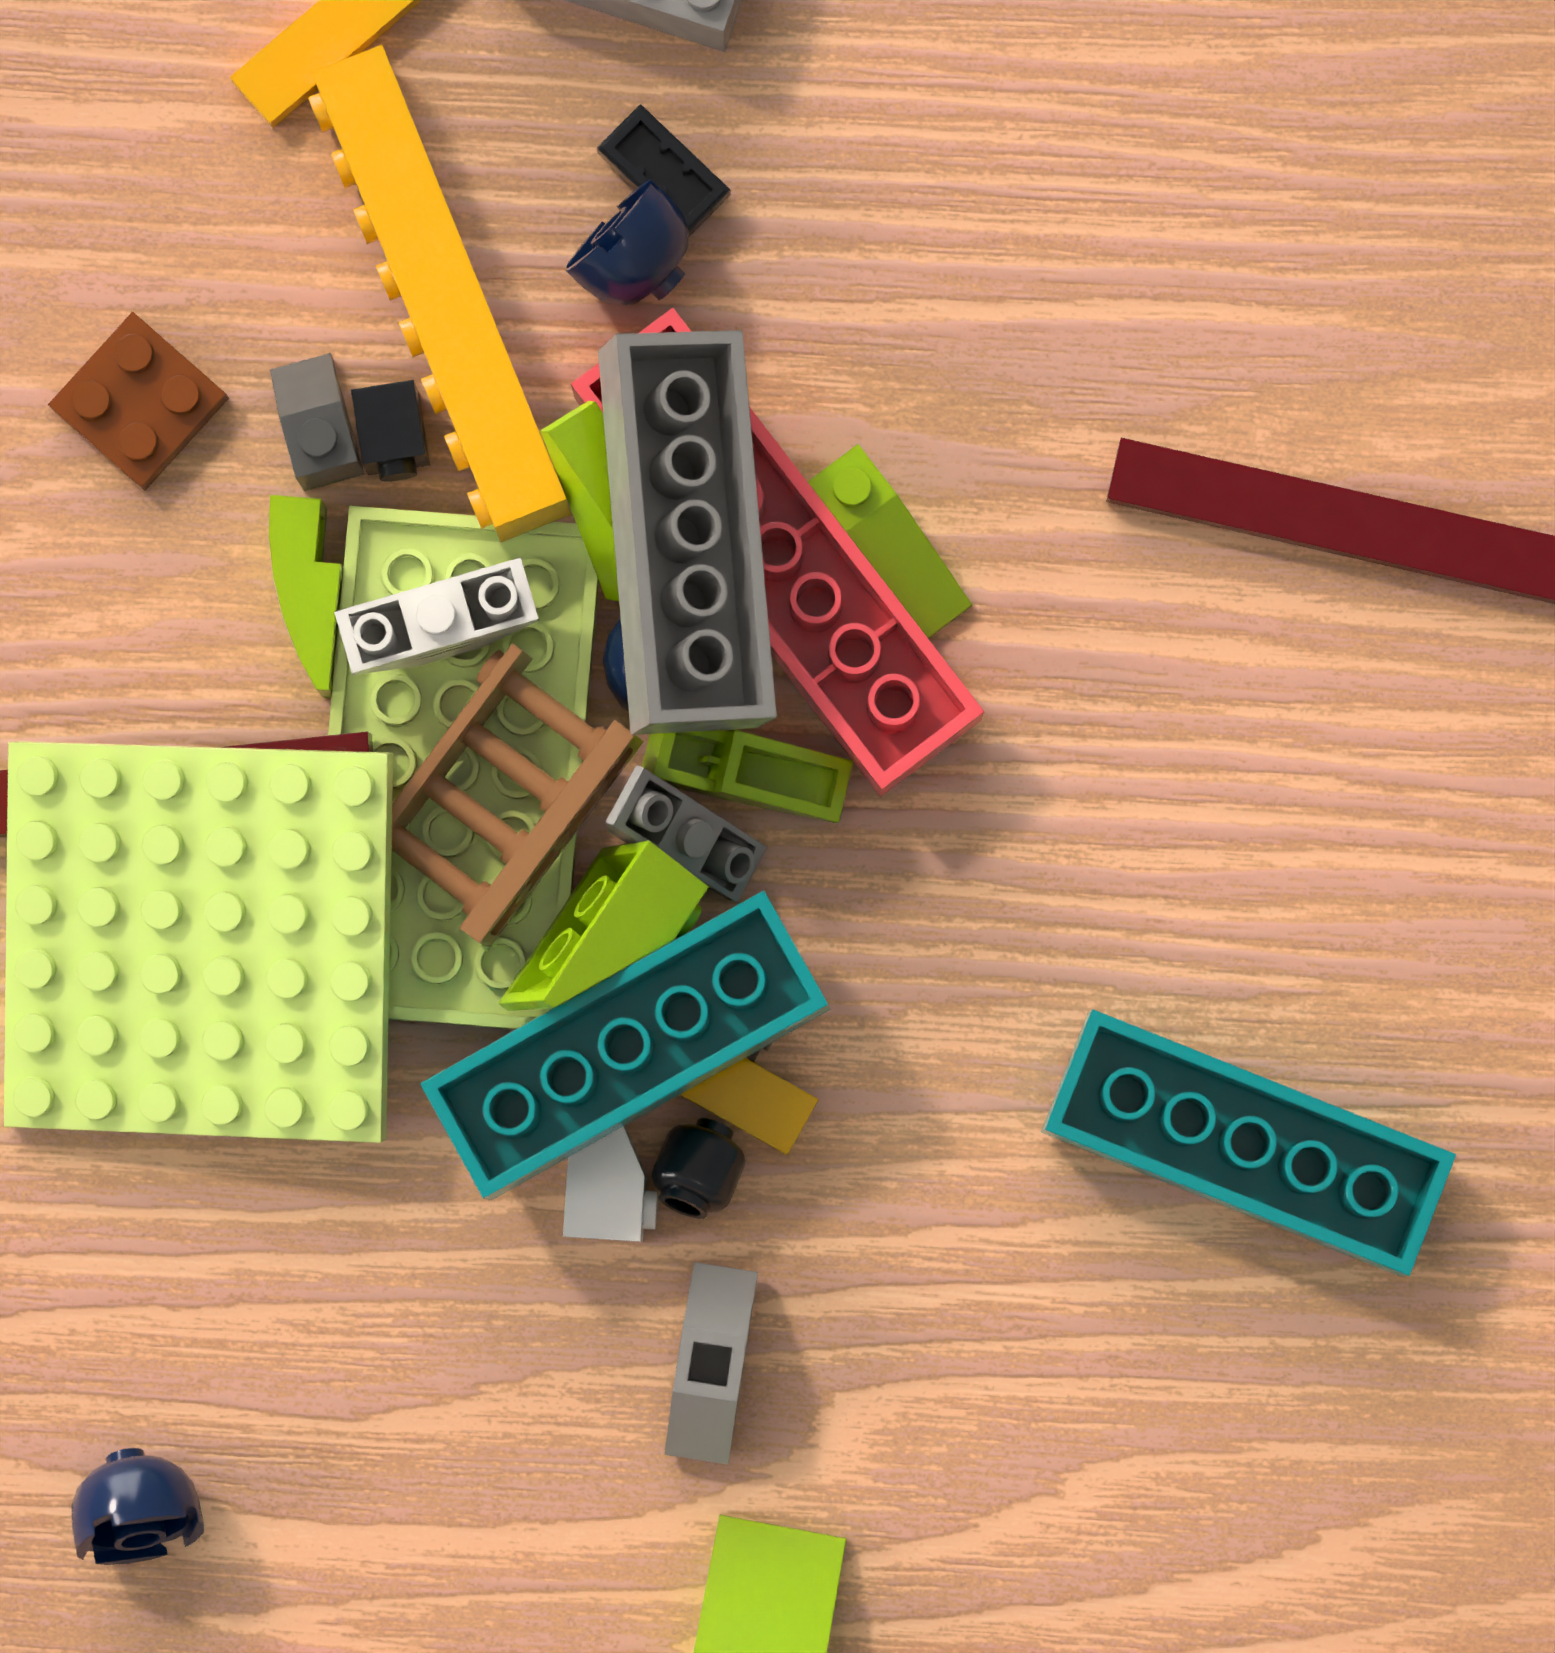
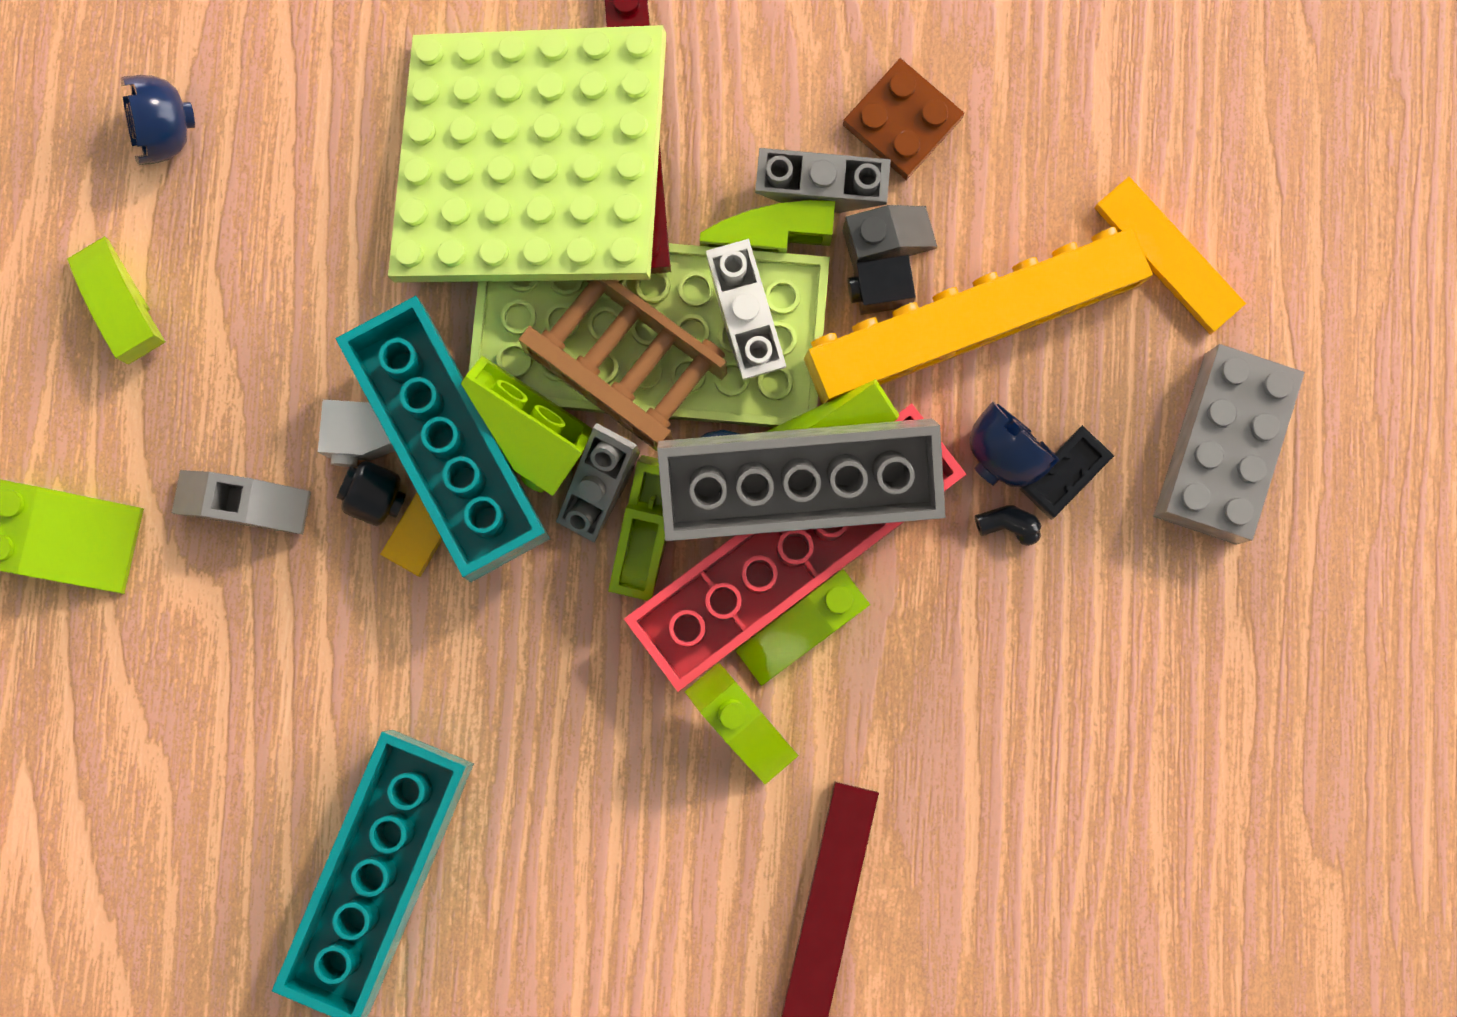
camera: 90 degrees right, 0 degrees up
(235, 512) = (802, 176): none -> light grey slope
(407, 1562) = (114, 302): none -> lime slope
(730, 248) = (1013, 519): none -> black arm
(1025, 625) = (741, 723): none -> lime slope

